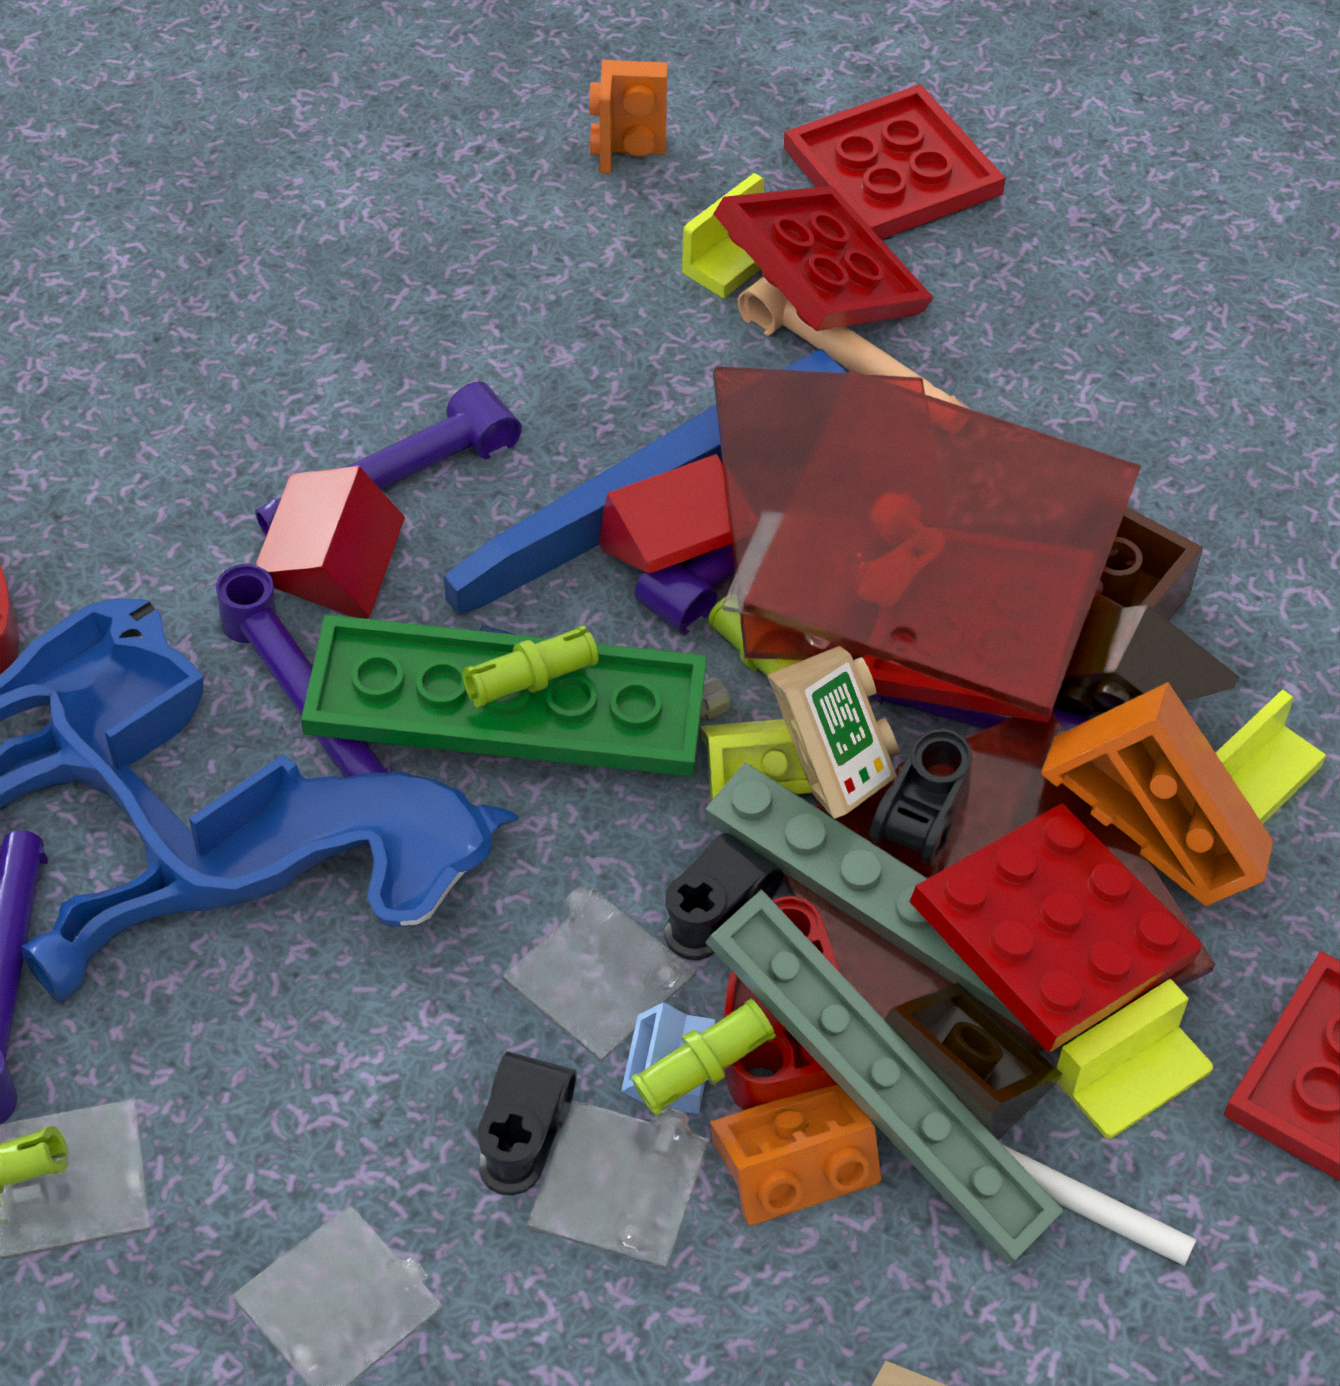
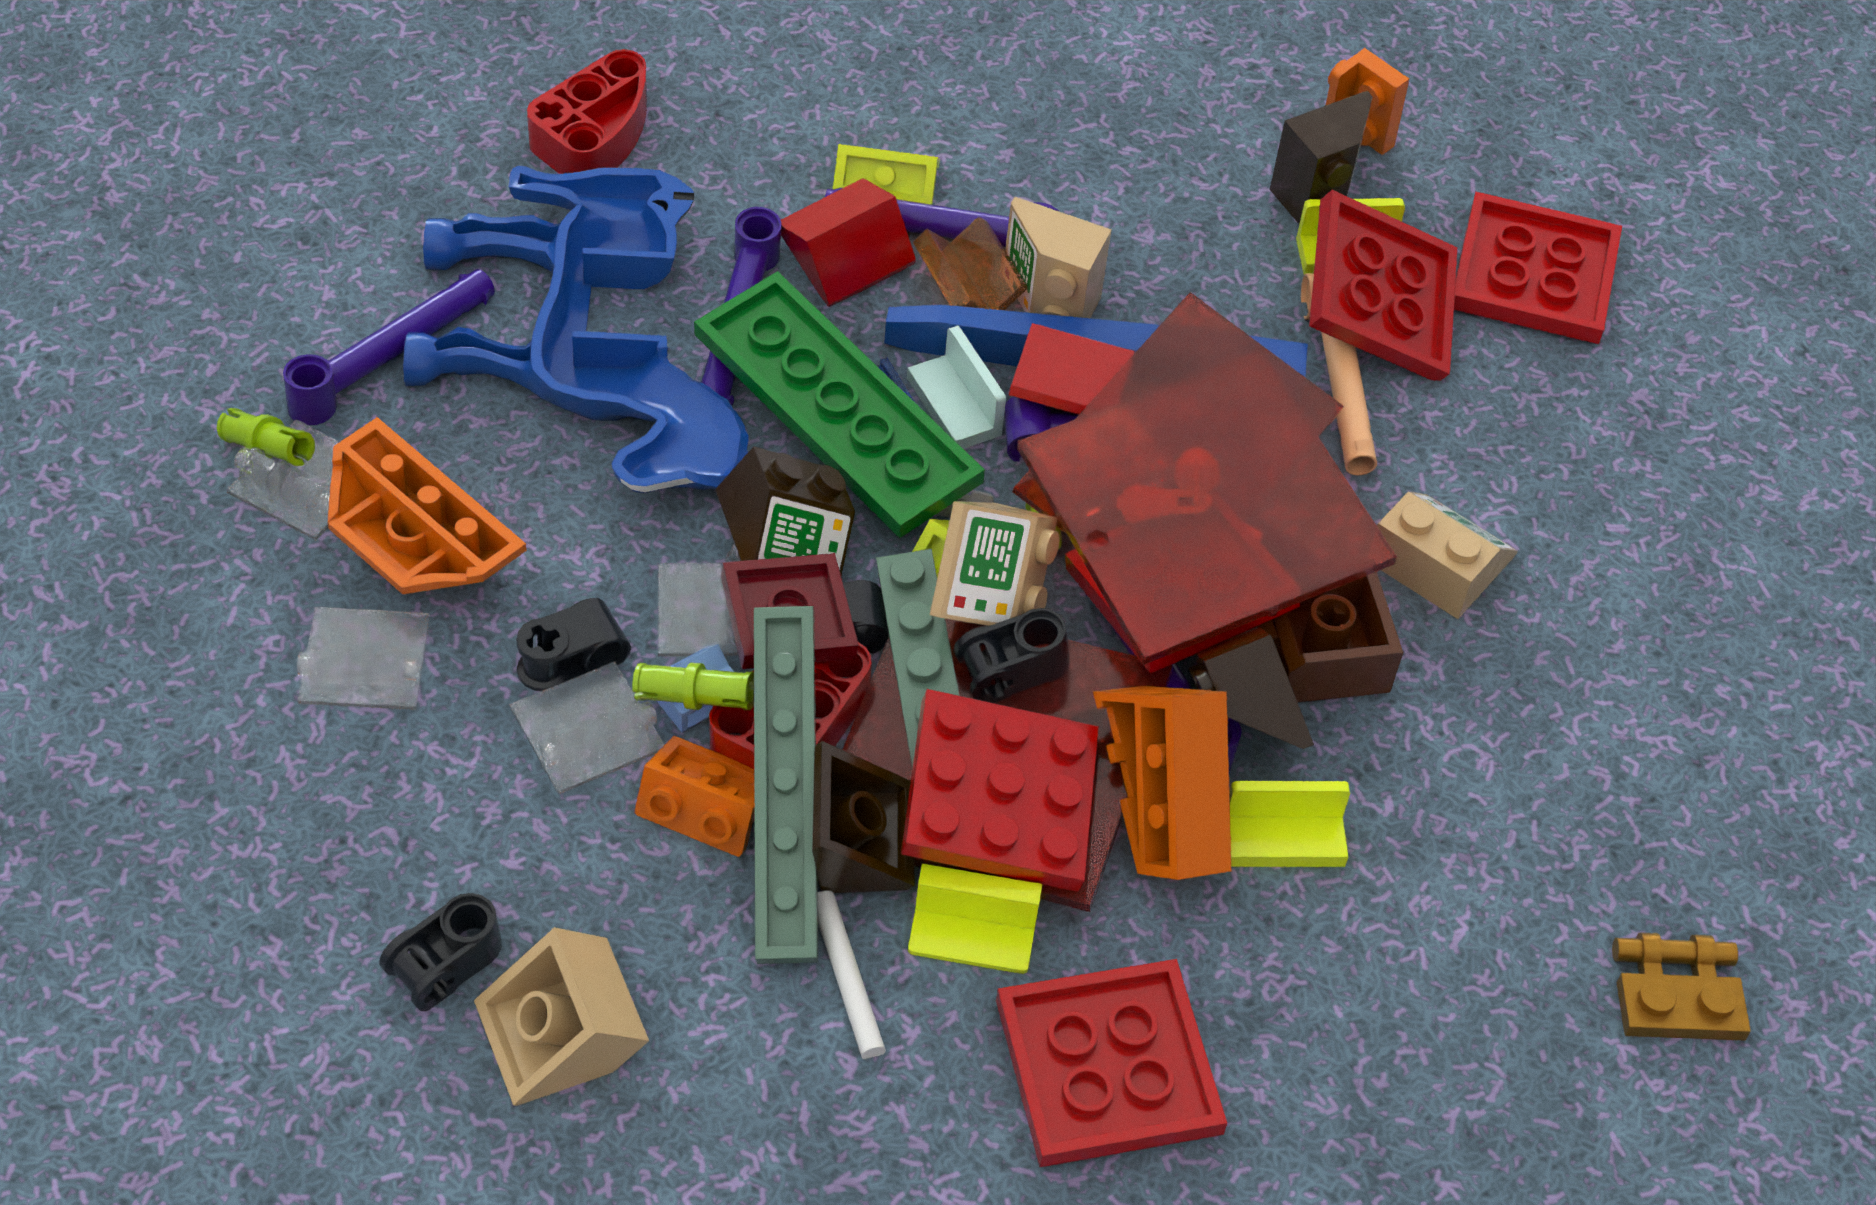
camera: 40 degrees right, 0 degrees up
(251, 1122) = (411, 516): none -> orange wedge
(302, 446) = (899, 173): none -> neon yellow panel
(470, 486) = (972, 267): none -> clear orange panel
(530, 666) = (856, 388): lime pin -> none
(544, 430) = (1057, 259): none -> tan slope
(577, 592) = (960, 392): none -> light aqua panel
(592, 835) = (786, 507): none -> dark brown slope
(654, 183) = (1319, 152): none -> dark brown slope
(683, 905) = (790, 583): none -> dark red plate
(1120, 431) = (1441, 552): none -> tan slope

